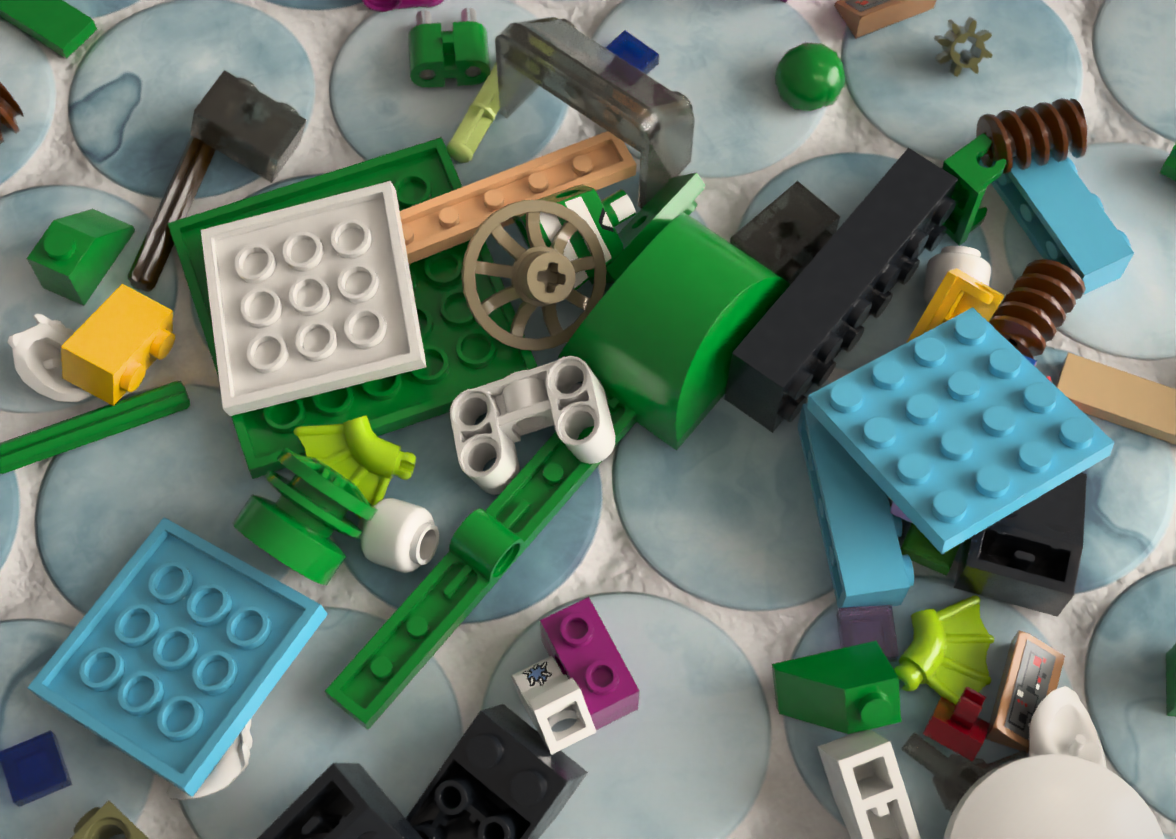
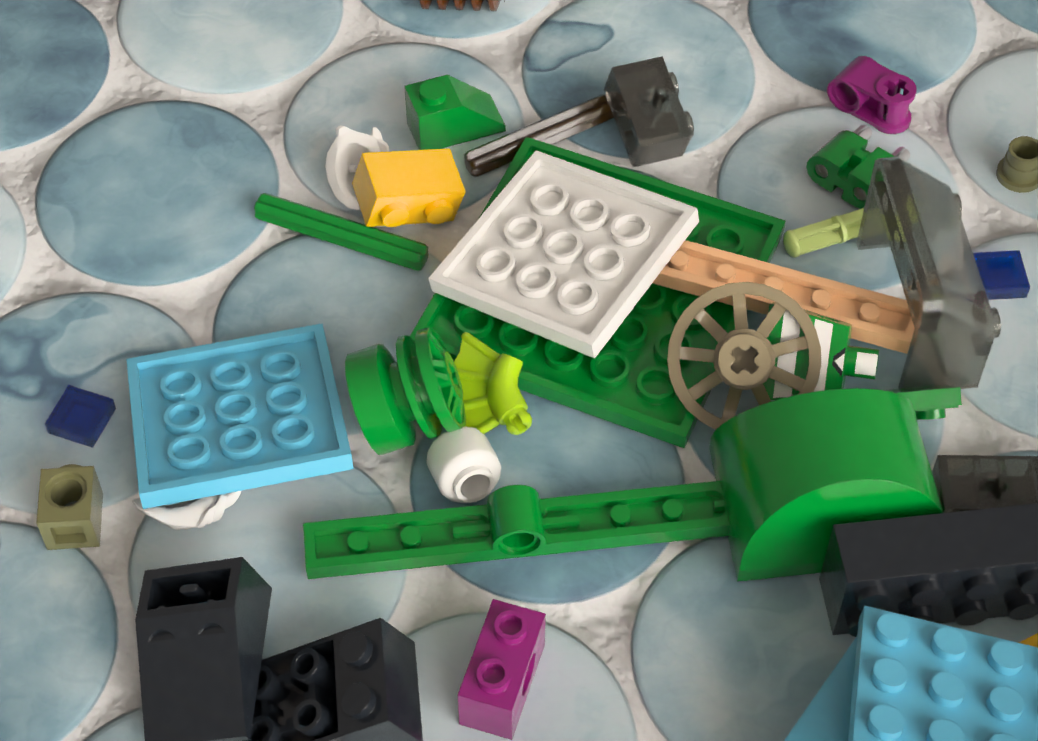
camera: 45 degrees right, 10 degrees down
(526, 404) = (671, 459): white beam -> none
(551, 698) = (439, 666): white leg -> none

